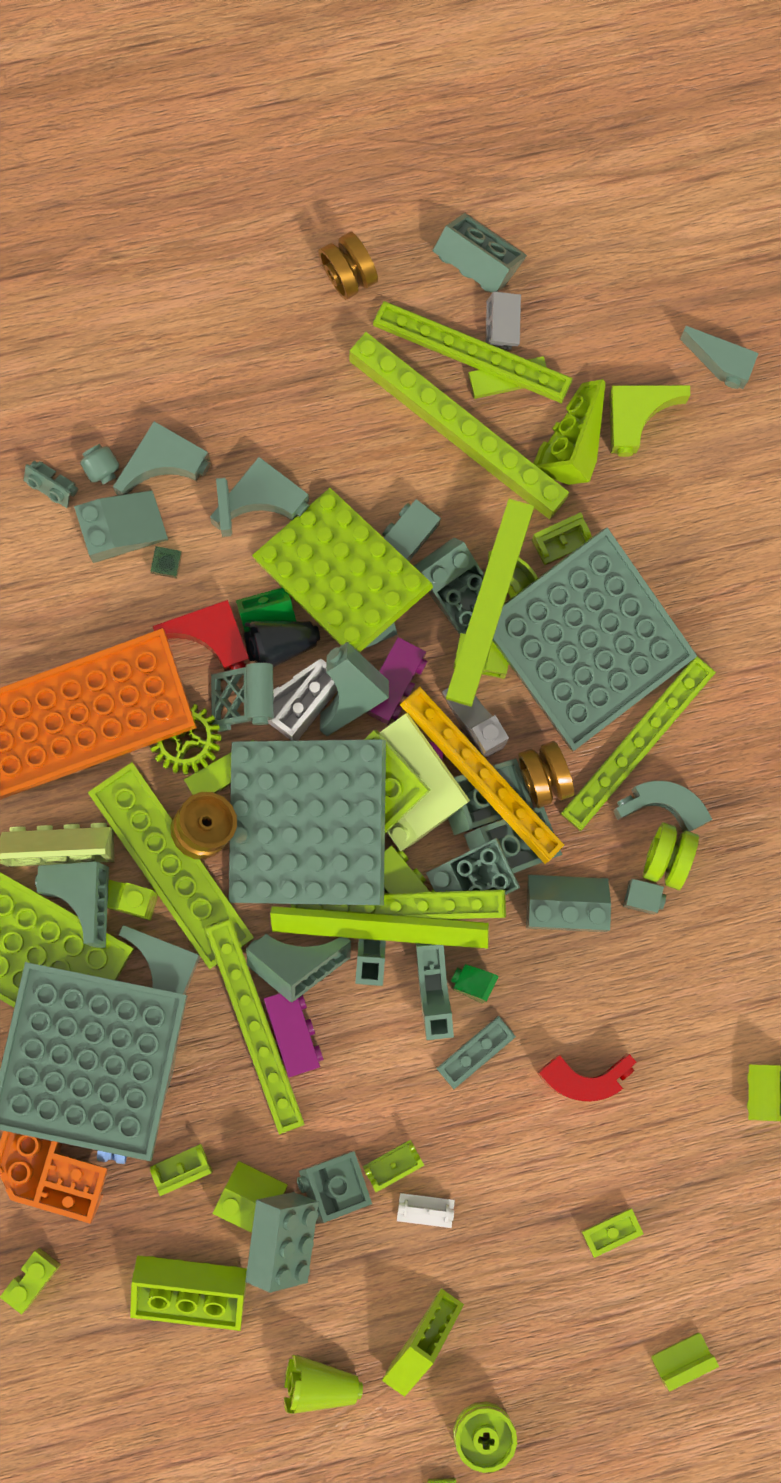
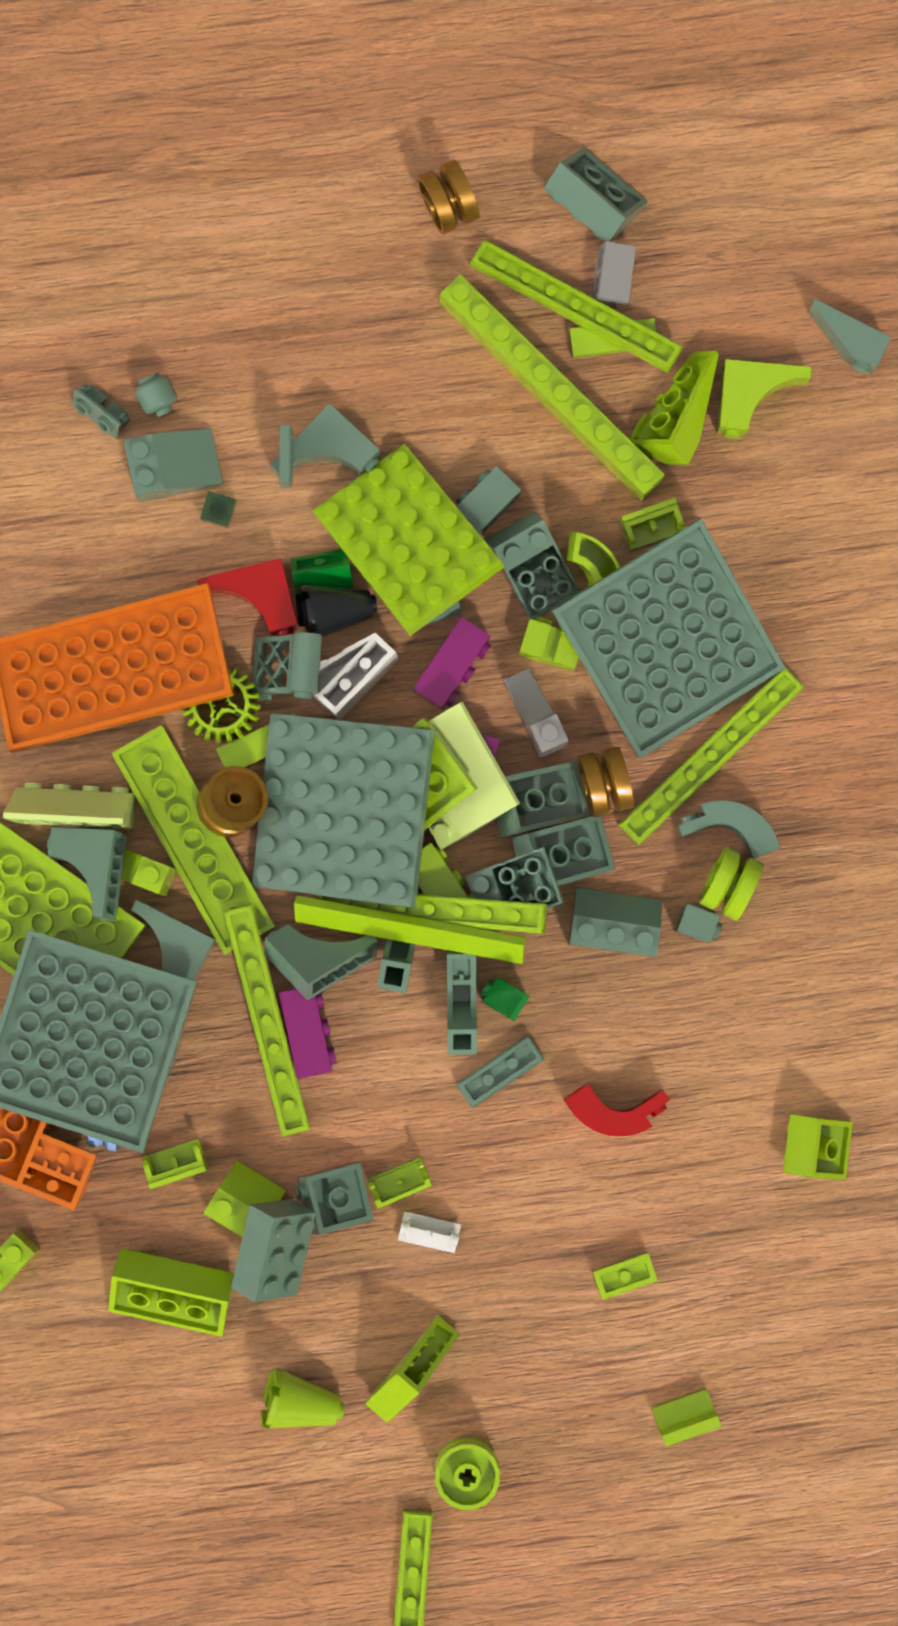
camera: 10 degrees right, 5 degrees up
(162, 454) = (224, 389): sand green arch -> none
(358, 687) = (411, 667): sand green arch -> none
(482, 775) = (536, 776): yellow tile -> none
(490, 602) = (564, 589): lime tile -> none

